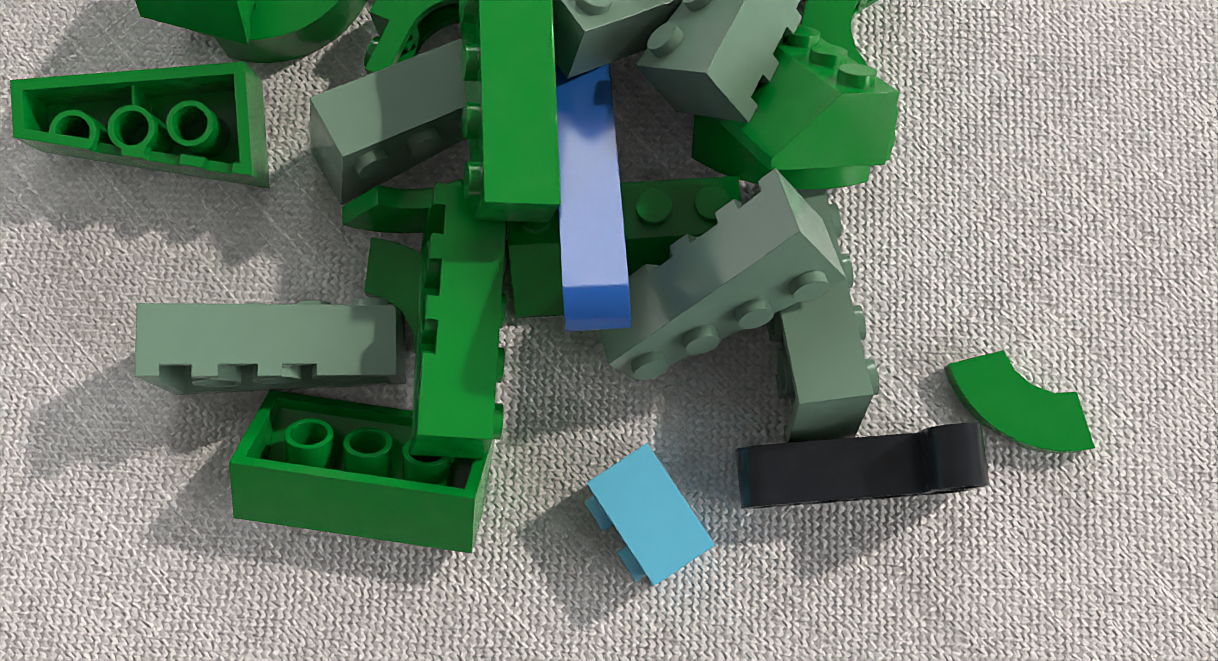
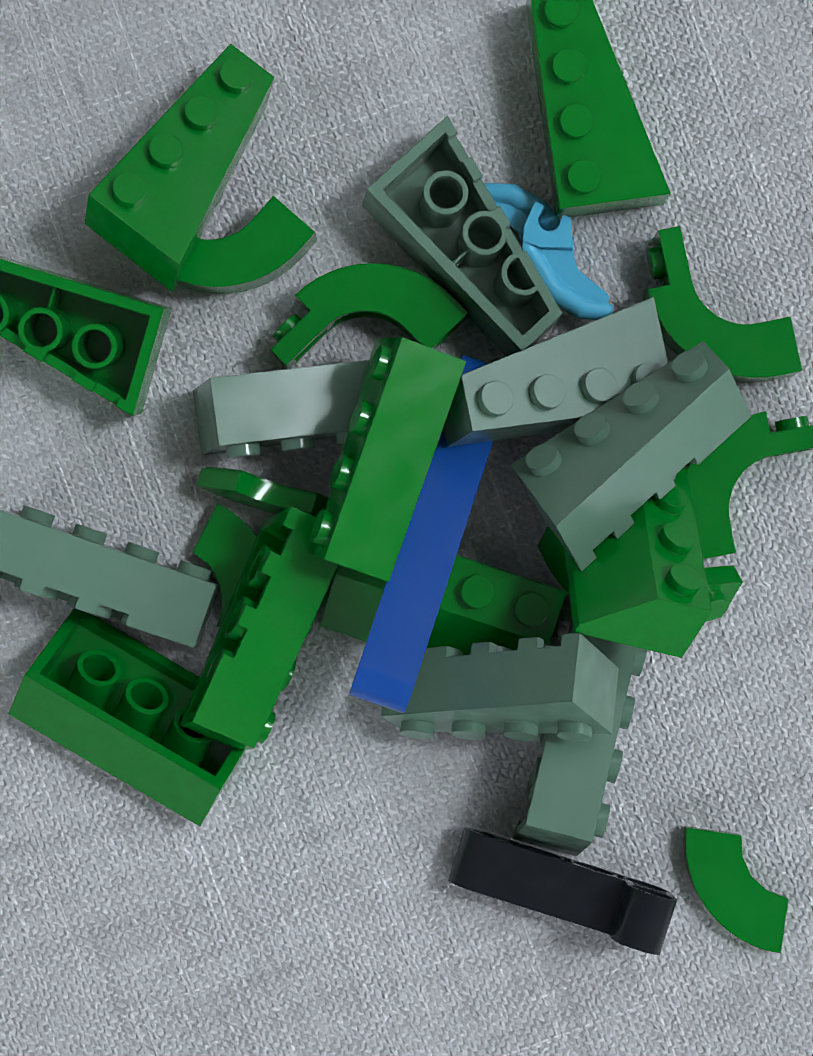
camera: 20 degrees right, 10 degrees up
(648, 516) = (363, 855): medium azure brick -> none

